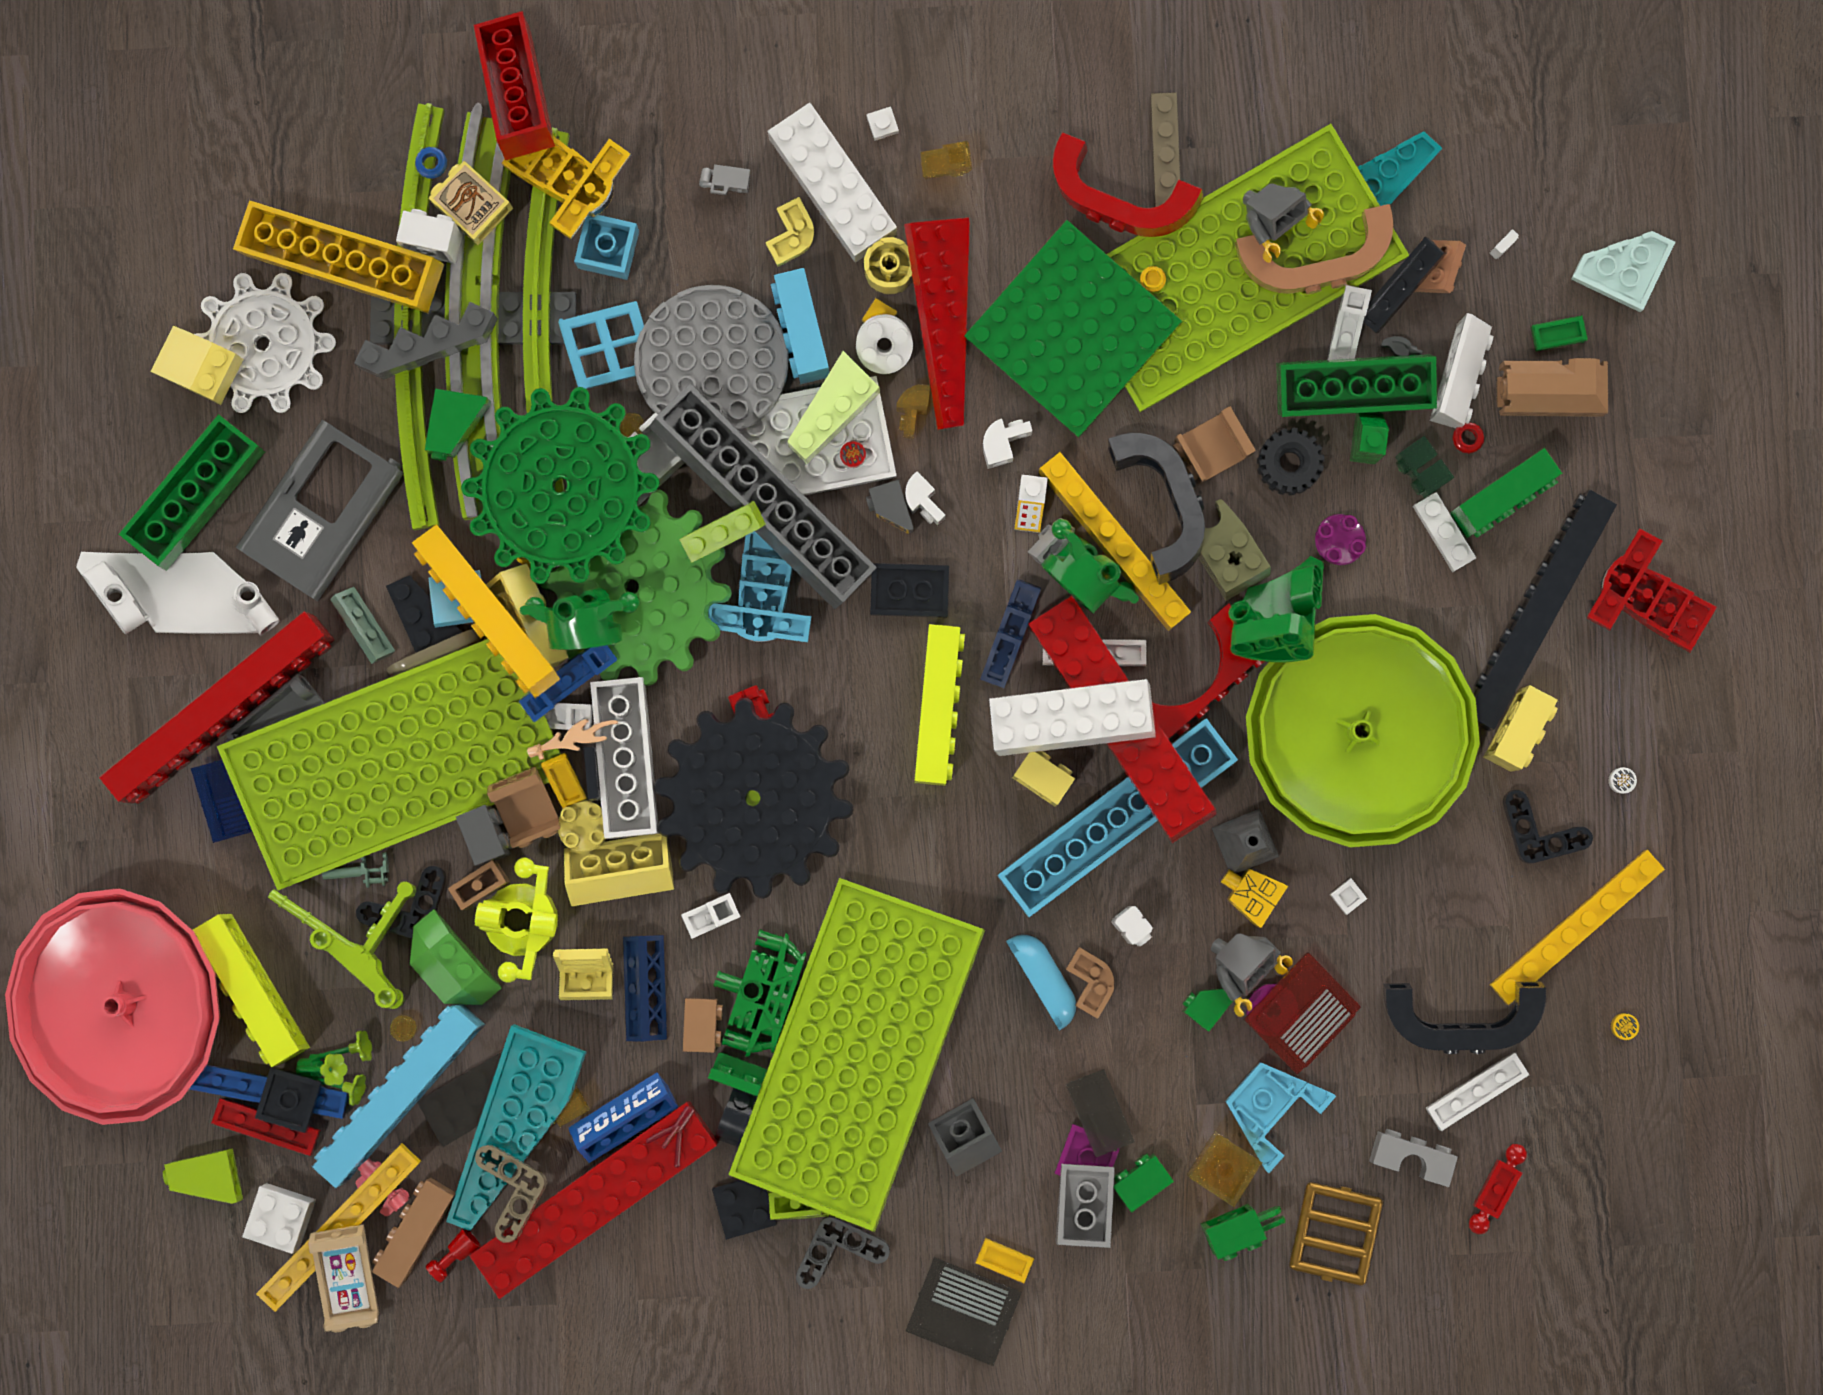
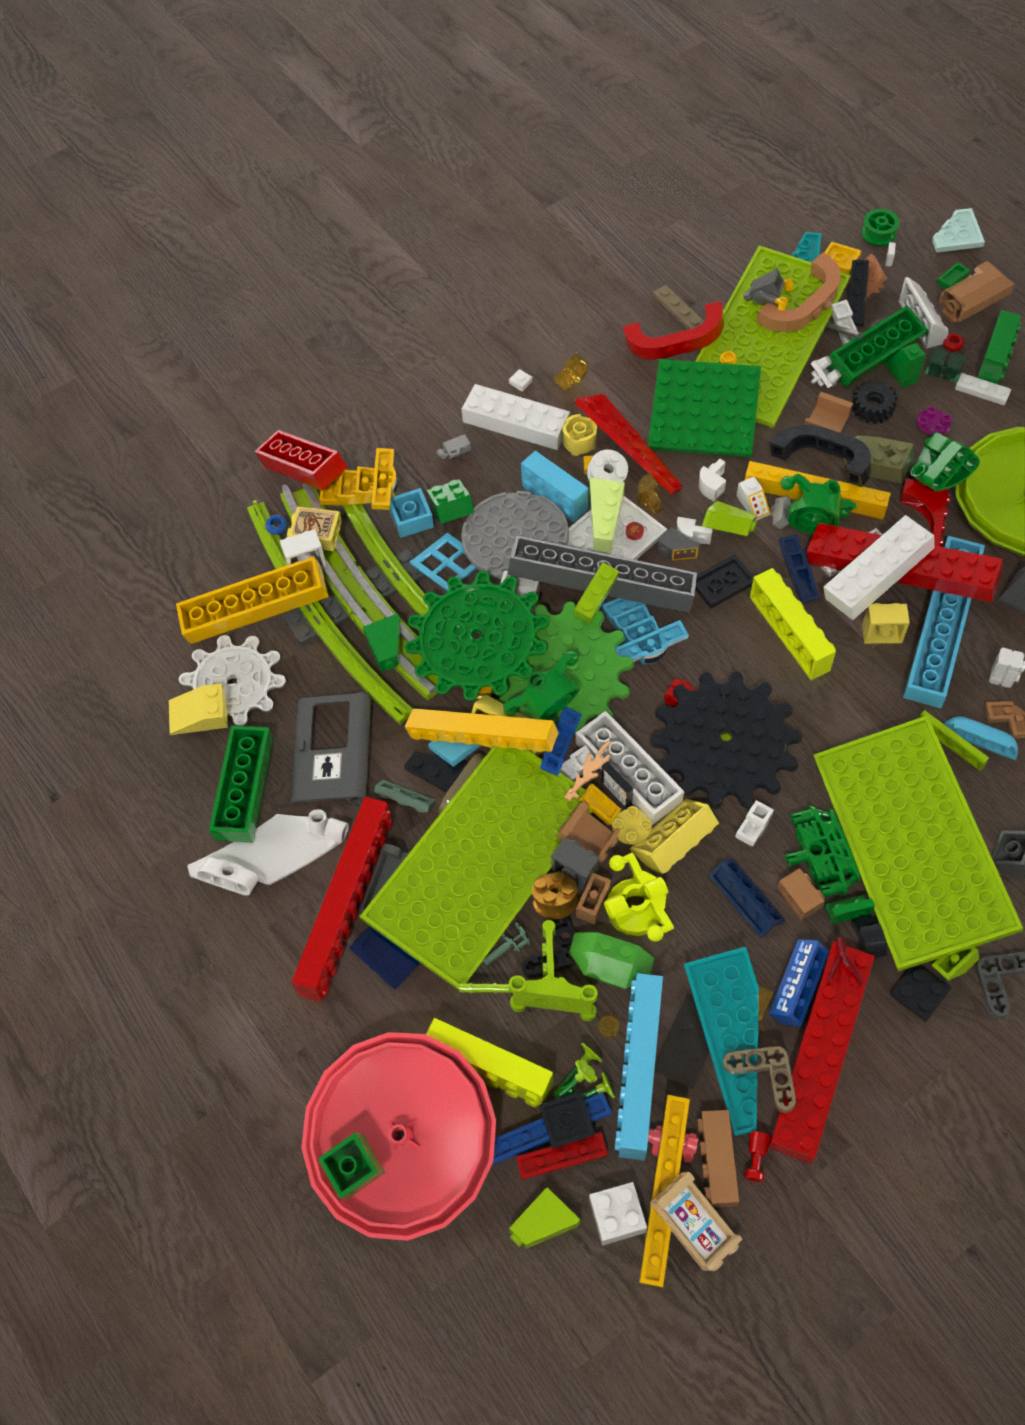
camera: 30 degrees left, 25 degrees down
(45, 1010) = (351, 1165): none -> green brick
(436, 841) = (555, 895): none -> pearl gold wheel
(440, 340) = (335, 616): dark grey brick -> none
(584, 974) = (701, 906): light yellow plate -> none
(663, 263) = (450, 501): none -> green brick
(798, 235) = (514, 452): light yellow plate -> none
(976, 514) = (729, 519): none -> lime slope
(1003, 964) = (957, 743): none -> lime tile
(1258, 379) = (822, 375): none -> white hips
(1329, 346) = (843, 330): none -> flat silver bar
(1433, 205) = (843, 256): none -> yellow plate
(1518, 203) = (880, 227): none -> green wheel

